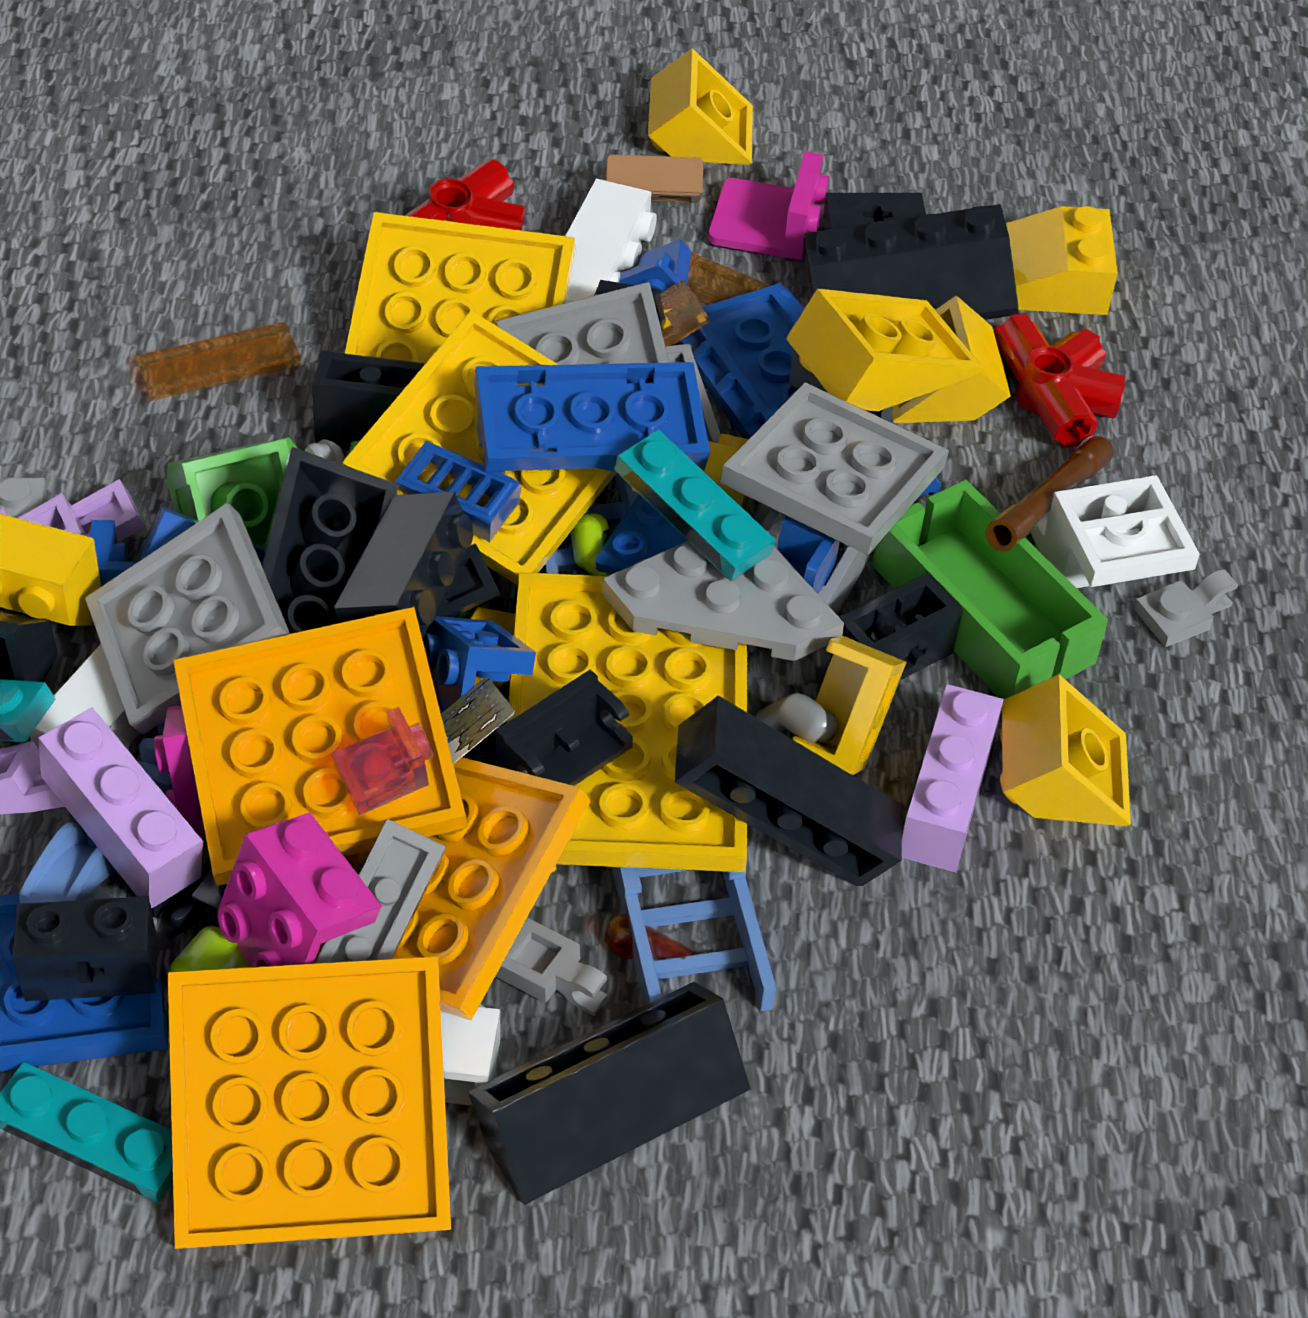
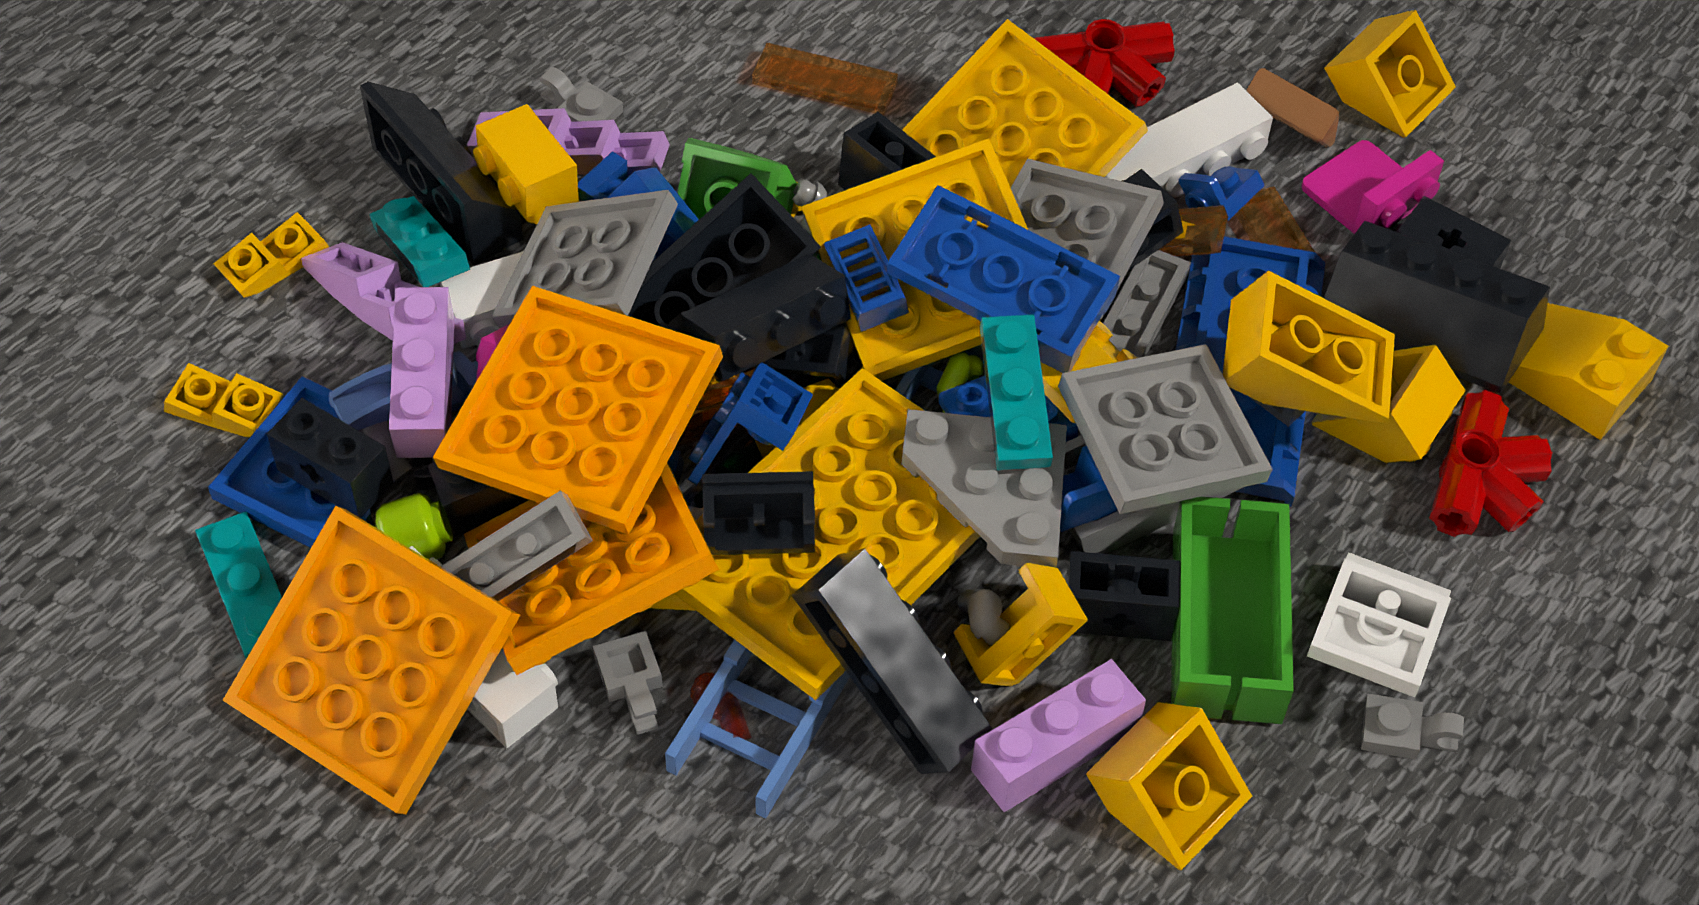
camera: 40 degrees right, 5 degrees up
(292, 894) = (464, 502): dark pink bracket -> none
(384, 764) = (595, 449): clear pink bracket -> none
(474, 717) = (700, 456): sticker -> none
(610, 1091) = (585, 794): black brick -> none
(1020, 518) = (1291, 563): reddish brown piece -> none

